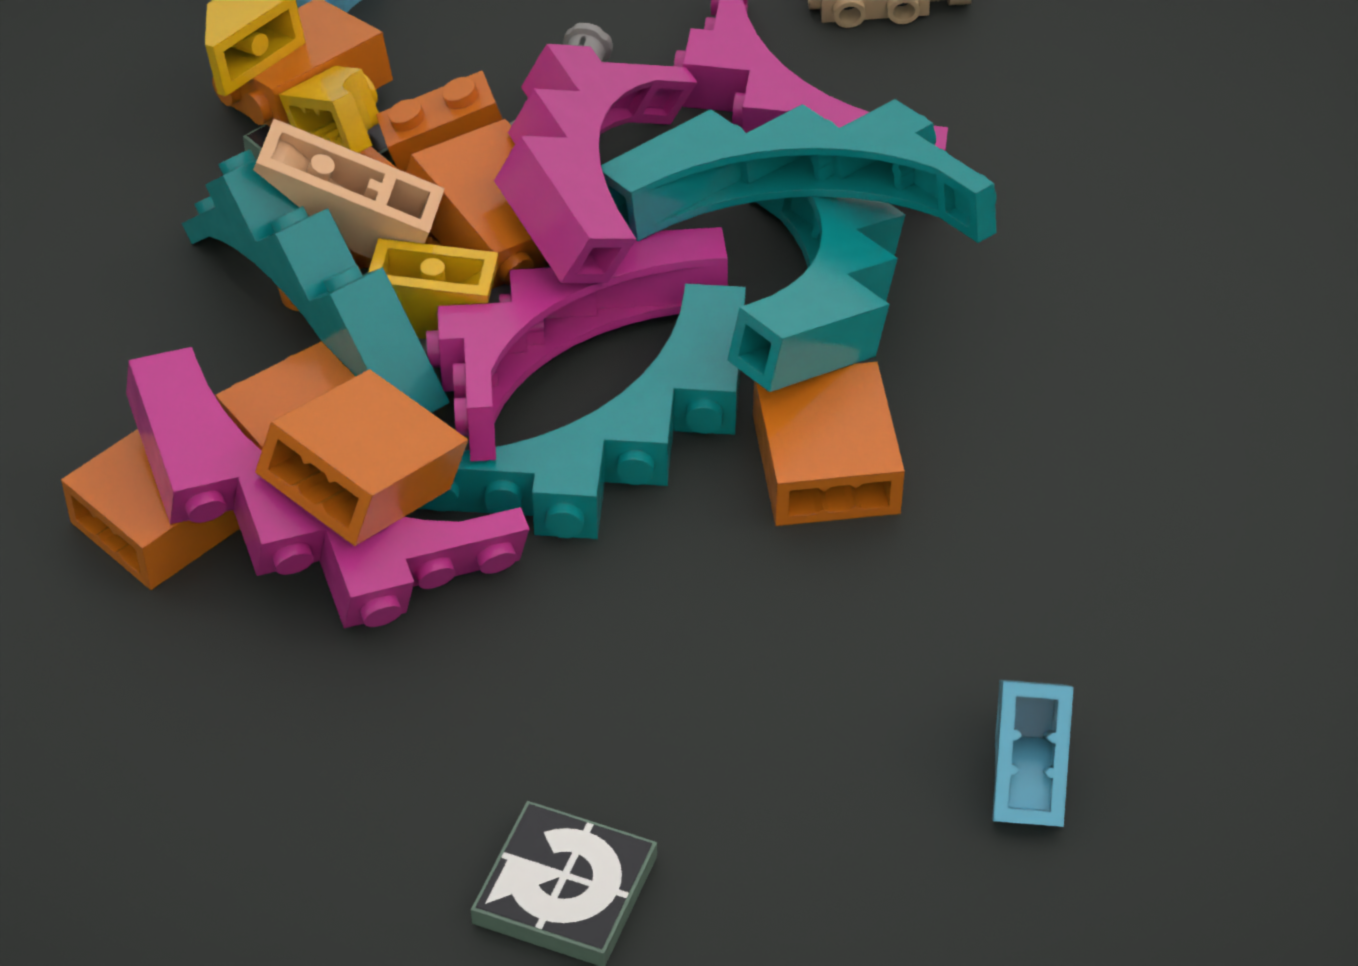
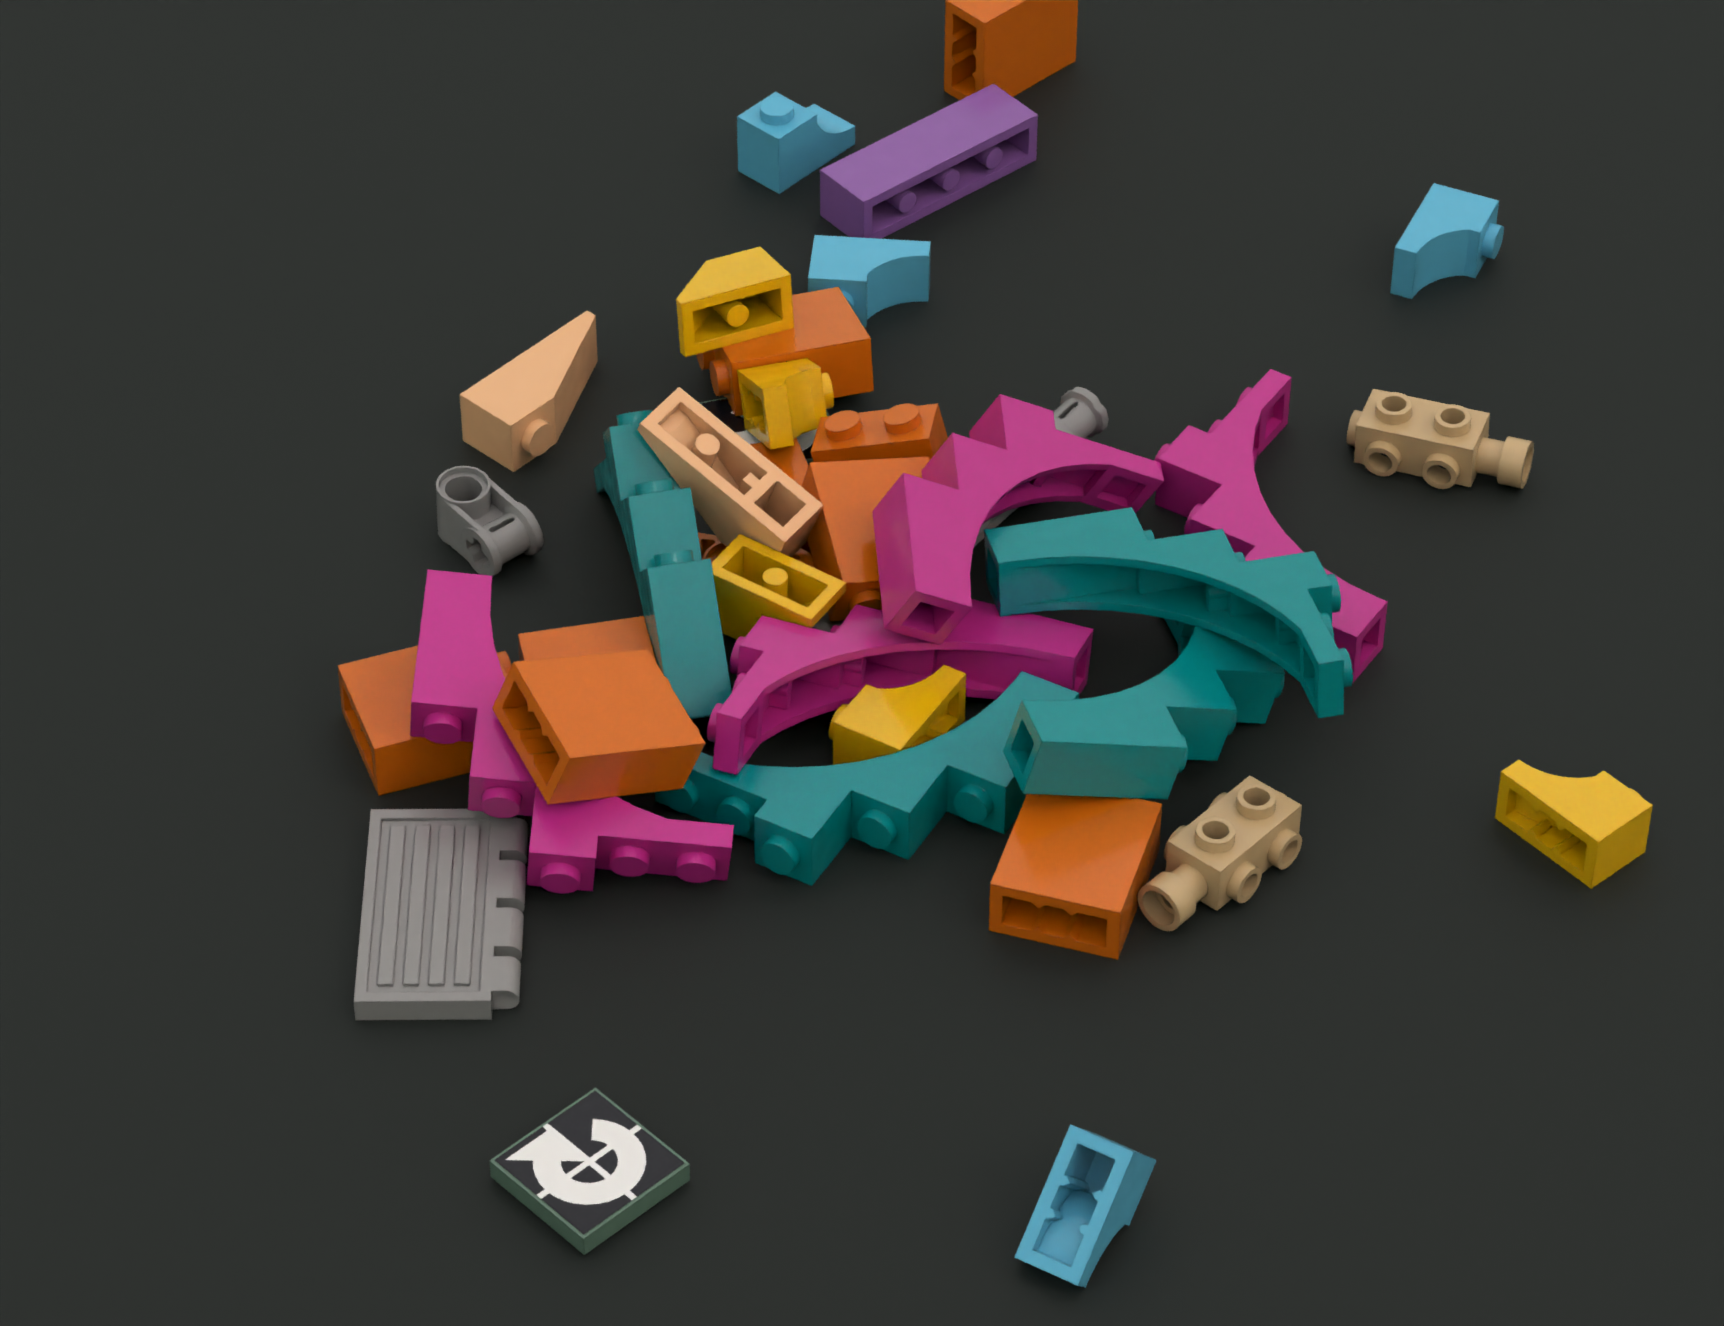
camera: 25 degrees right, 5 degrees down
(85, 185) = (529, 399): none -> light nougat slope
(108, 301) = (483, 520): none -> light grey piece
(280, 686) = (441, 915): none -> light grey hinge
(592, 366) = (898, 718): none -> yellow arch
(939, 388) = (1223, 853): none -> tan brick
(1201, 265) = (1578, 823): none -> yellow arch

